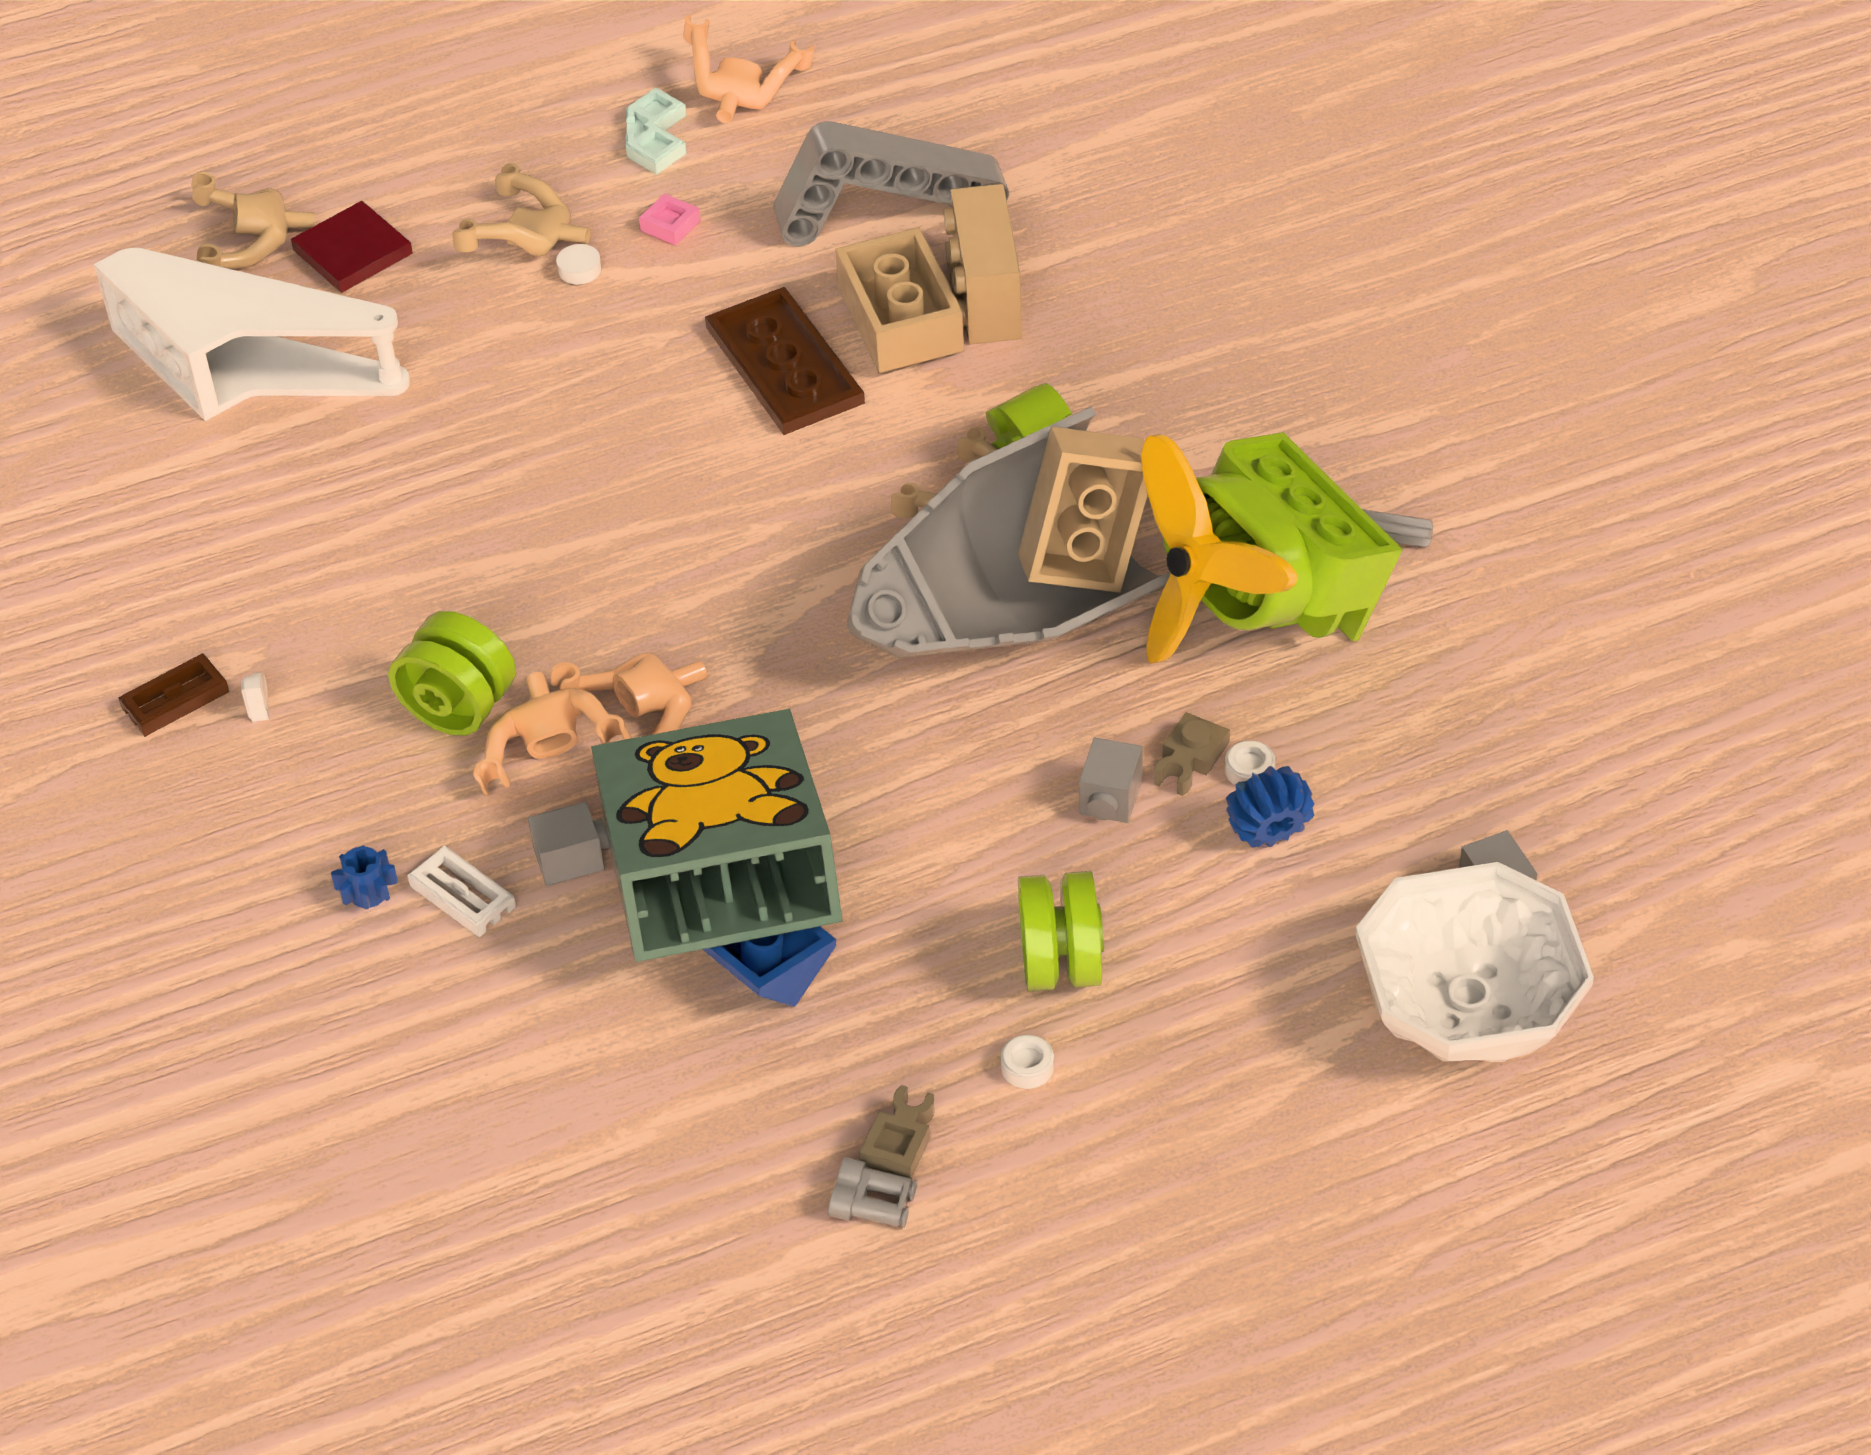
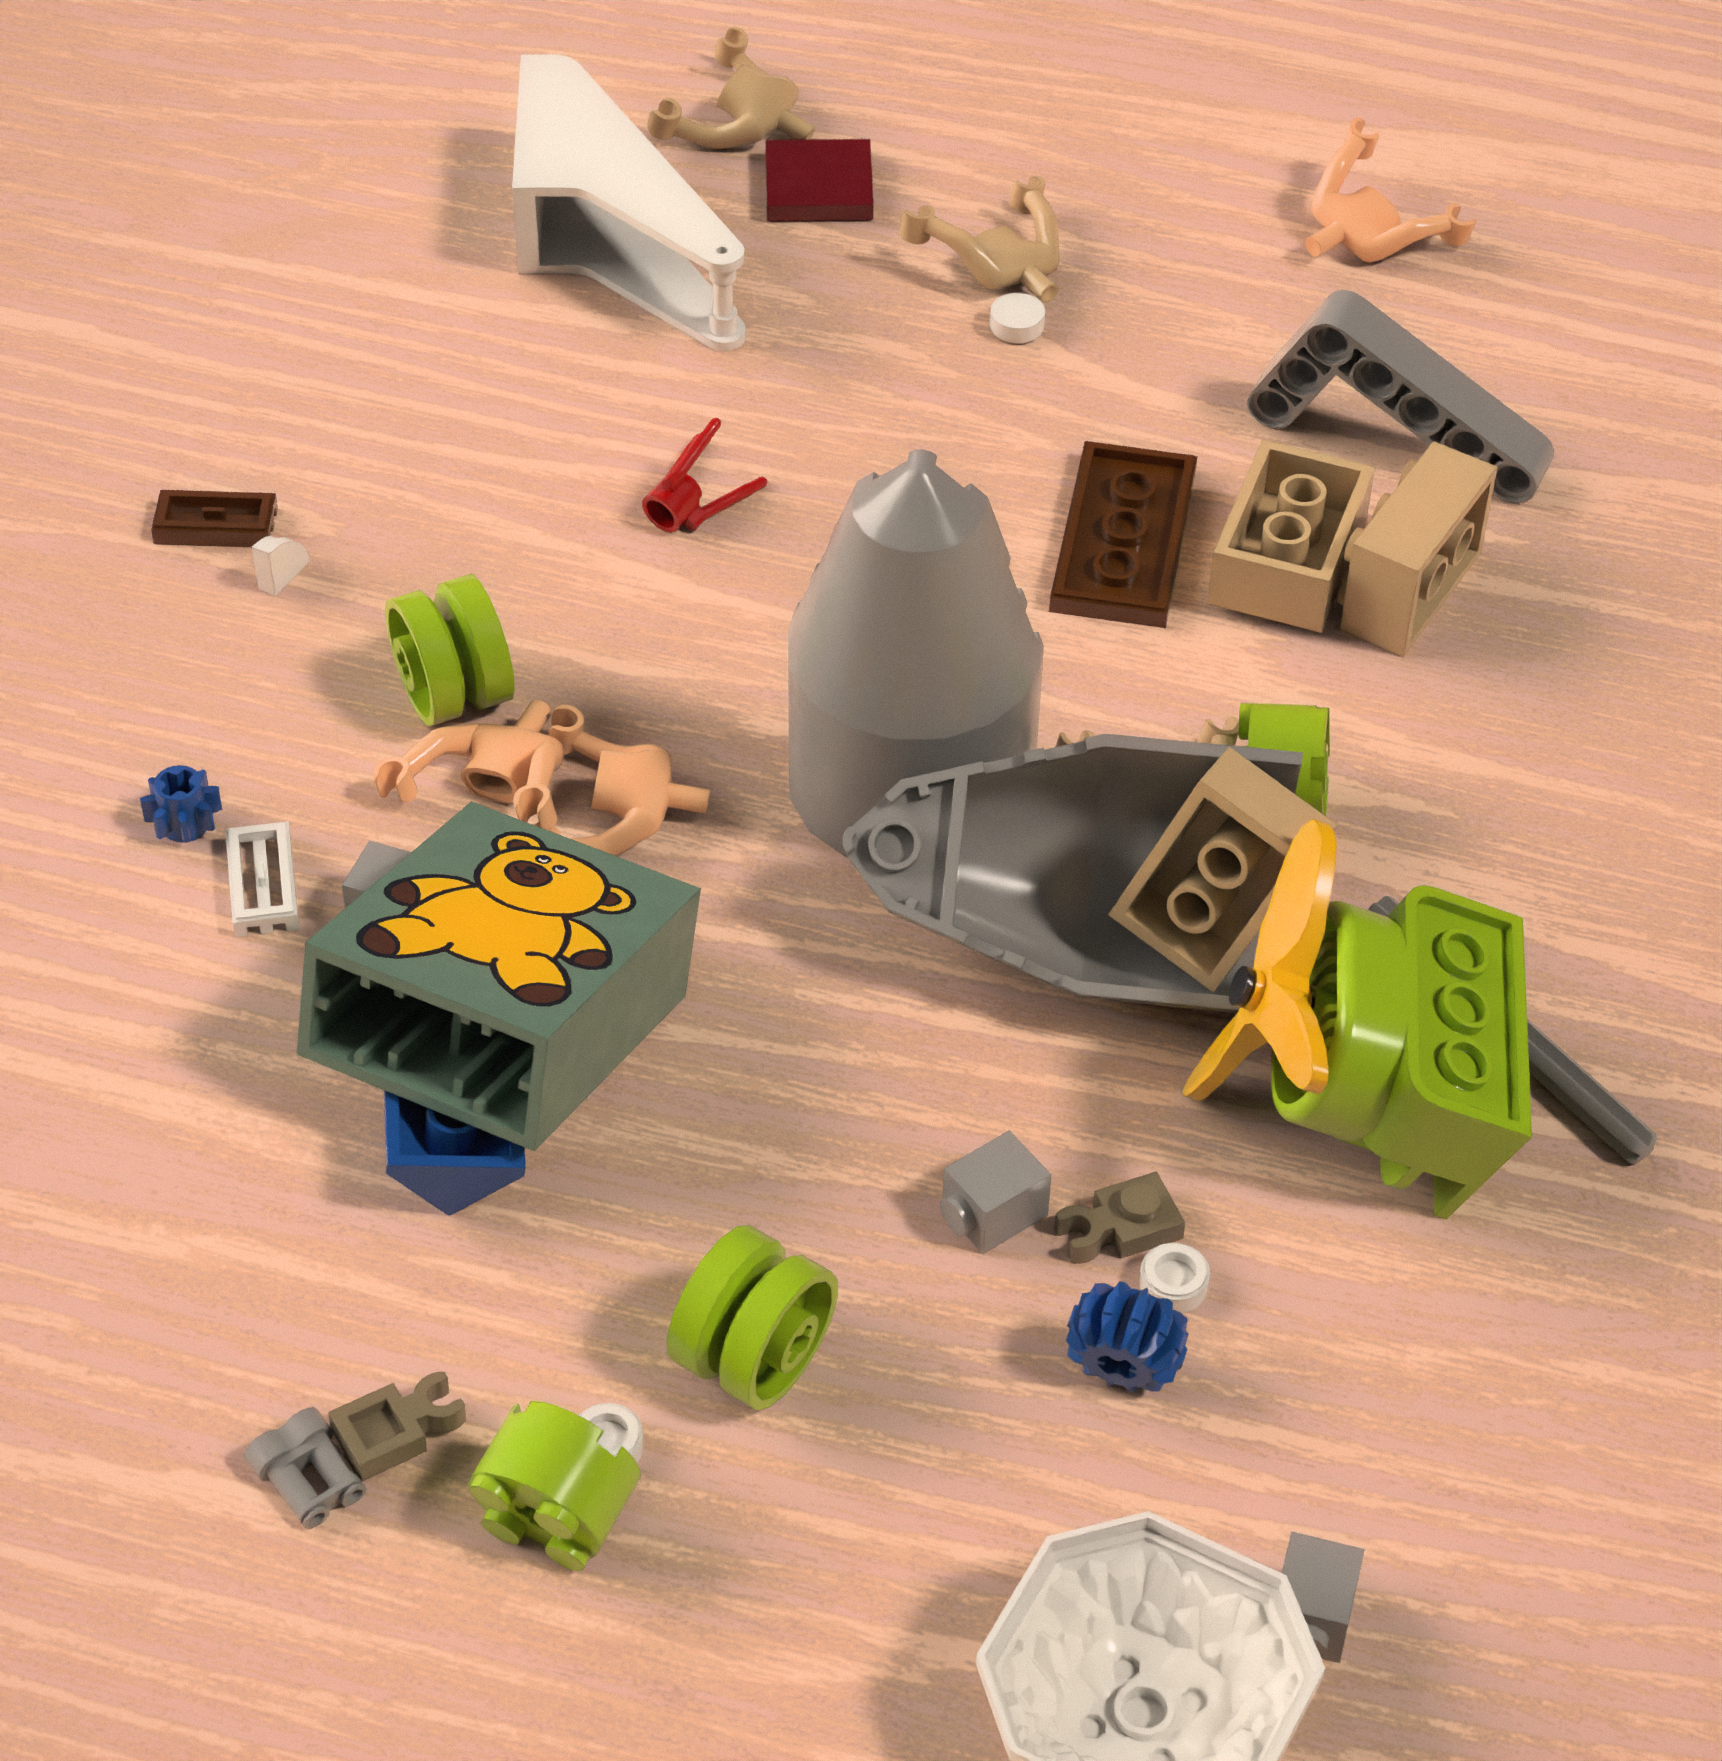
camera: 35 degrees right, 0 degrees up
(481, 501) = (677, 495): none -> red plant
(646, 135) = (1215, 236): light aqua tile -> none
(669, 219) = (1155, 323): bright pink tile -> none
(792, 503) = (906, 648): none -> light grey windscreen
(1038, 1095) = (552, 1483): none -> lime brick

